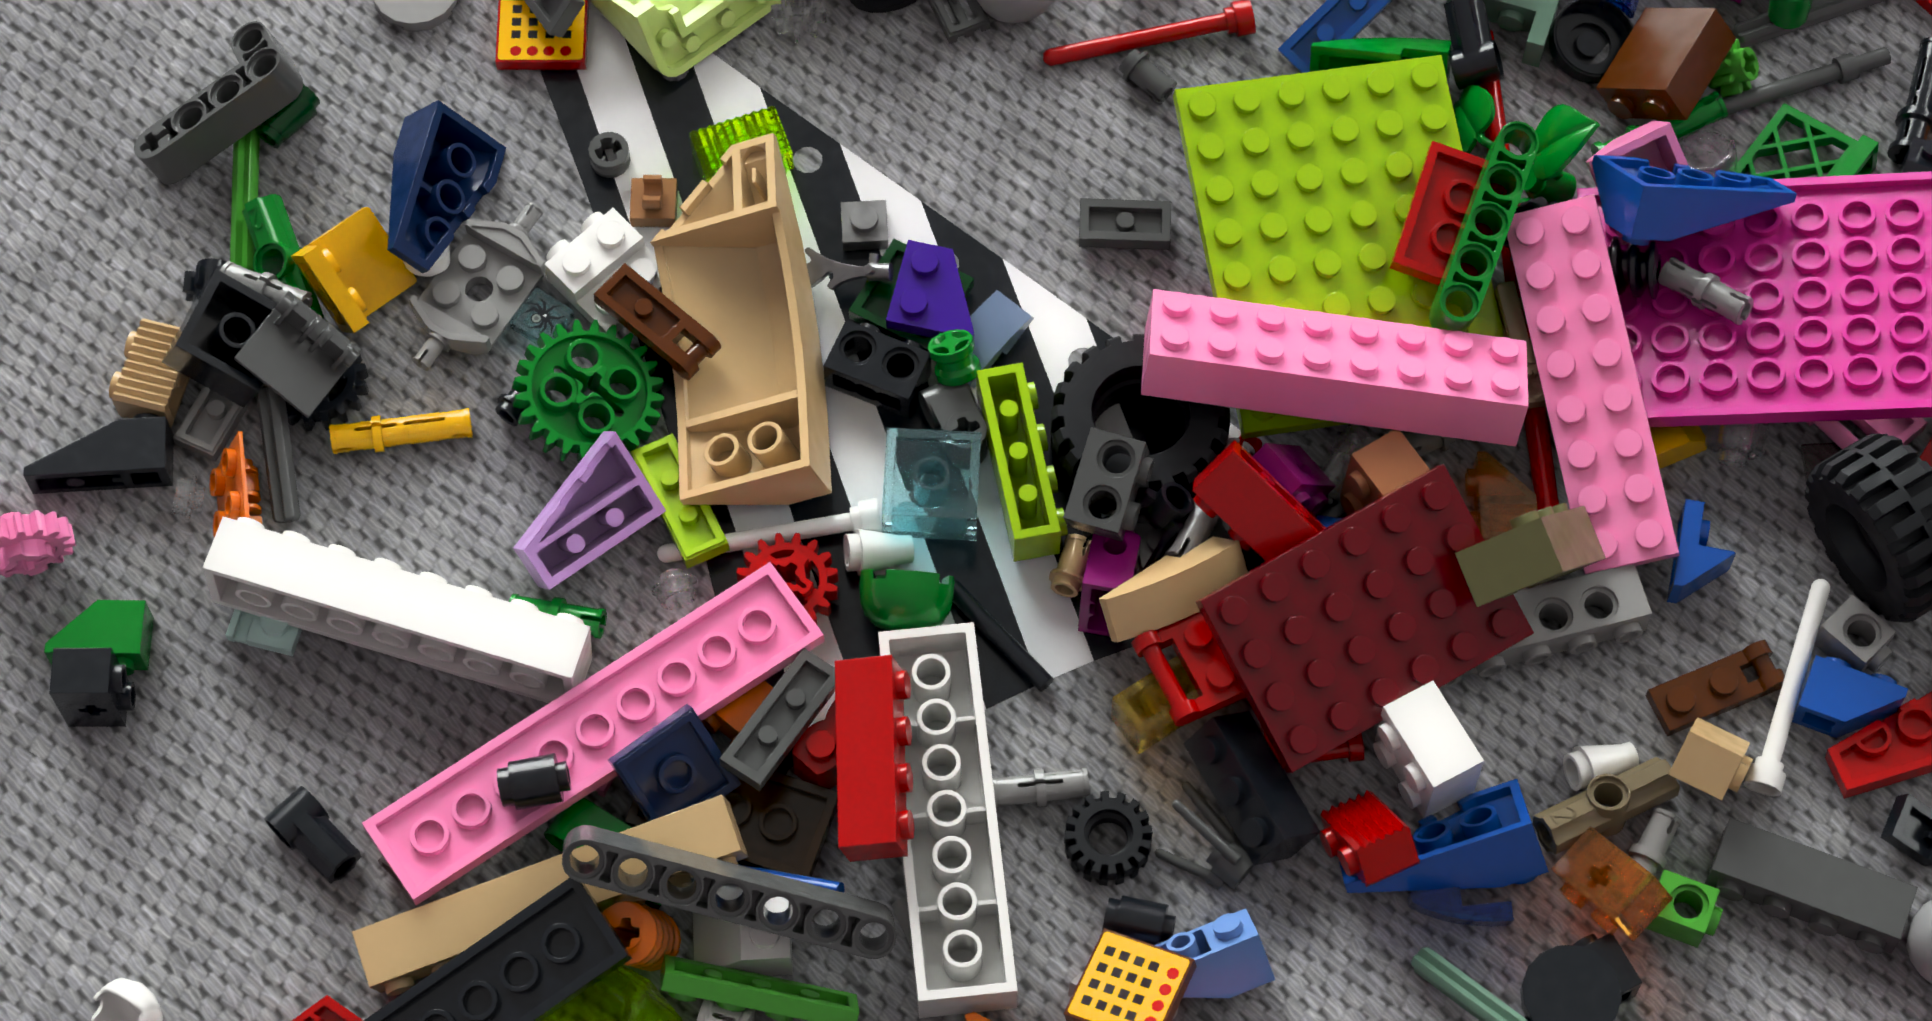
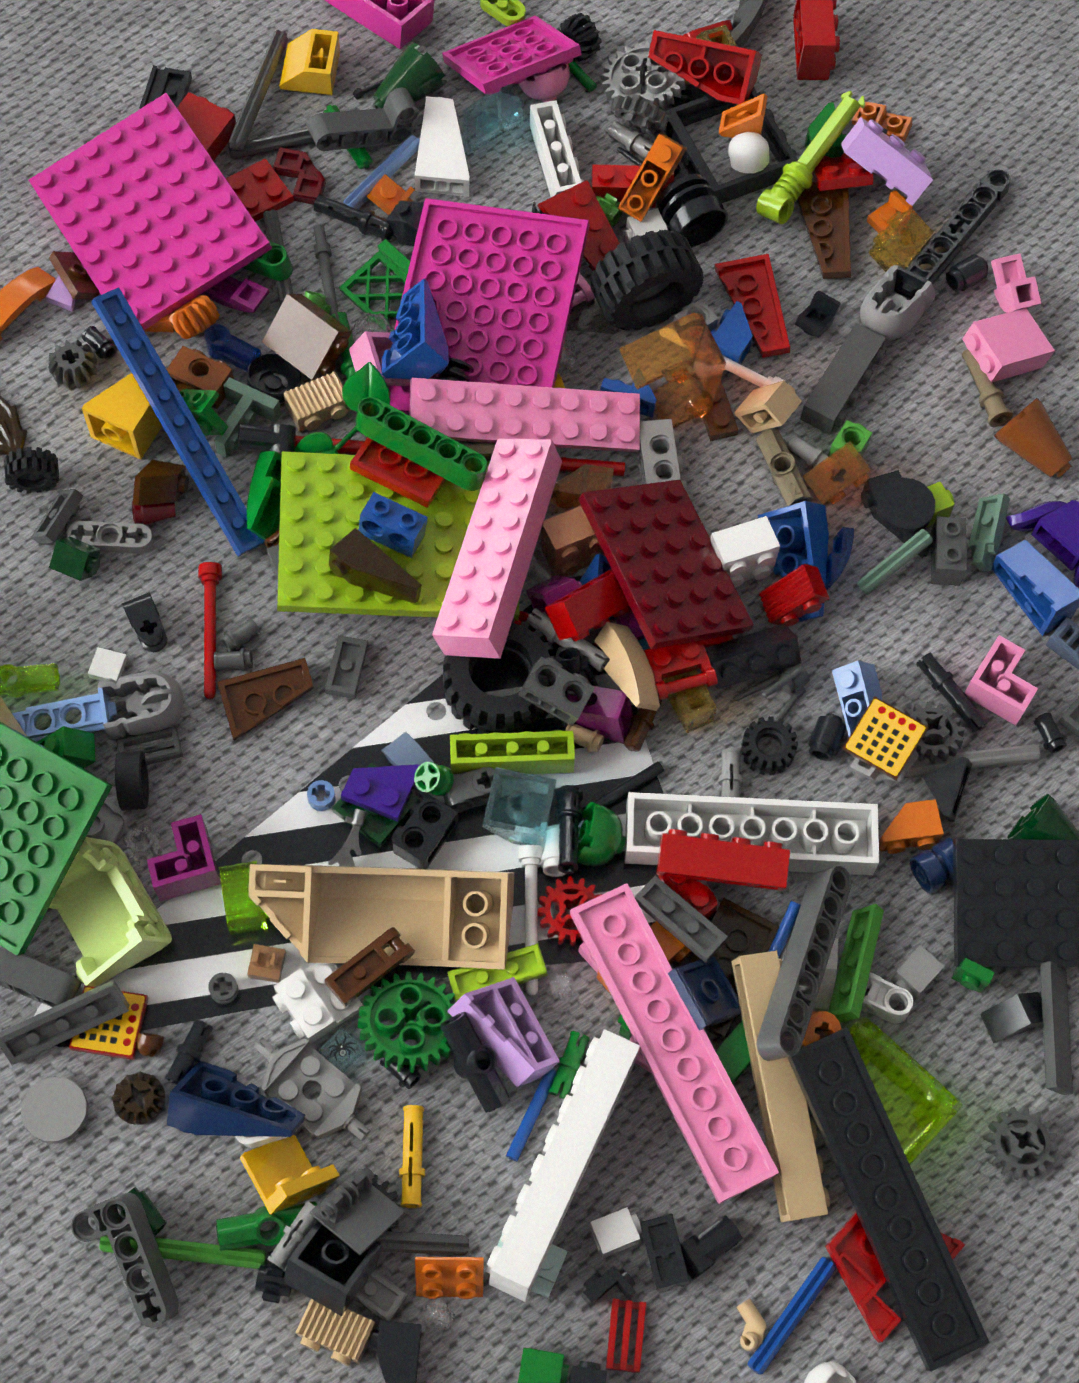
camera: 85 degrees left, 0 degrees up
(178, 727) = (623, 1366): none -> red tile
(206, 915) = (754, 1328): none -> tan arm
(228, 964) = (791, 1315): none -> blue axle
(245, 696) = (600, 1284): none -> black bracket
(292, 767) = (664, 1253): none -> black hinge
(320, 706) = (615, 1232): none -> white brick
(464, 82) = (153, 1101): none -> dark brown gear
(476, 577) = (531, 1116): none -> blue bar
(514, 129) = (189, 1051): none -> black pin
(514, 499) = (475, 1062): none -> black piece
(520, 79) = (149, 1044): none -> reddish brown hinge
(533, 782) = (713, 1078): black brick -> none
(781, 73) = (190, 866): none -> magenta brick
(864, 225) = (312, 828): flat silver plate -> none
(915, 212) = (312, 799): none -> medium blue bush
(932, 552) = (568, 817): none -> black pin
(1059, 122) = (263, 693): none -> reddish brown wing
(1099, 645) = (641, 724): none -> reddish brown axle
(1109, 84) = (233, 660): none -> dark grey pin
(1262, 184) = (369, 567): none -> dark brown slope
(1338, 216) = (392, 524): none -> blue brick
(1533, 552) = (643, 462): olive wedge -> none
(1559, 83) = (316, 402): none -> tan brick
(1595, 760) = (756, 472): white cone -> none
(1706, 290) = (476, 340): light grey pin -> none
(1735, 583) = (689, 362): none -> clear orange windscreen

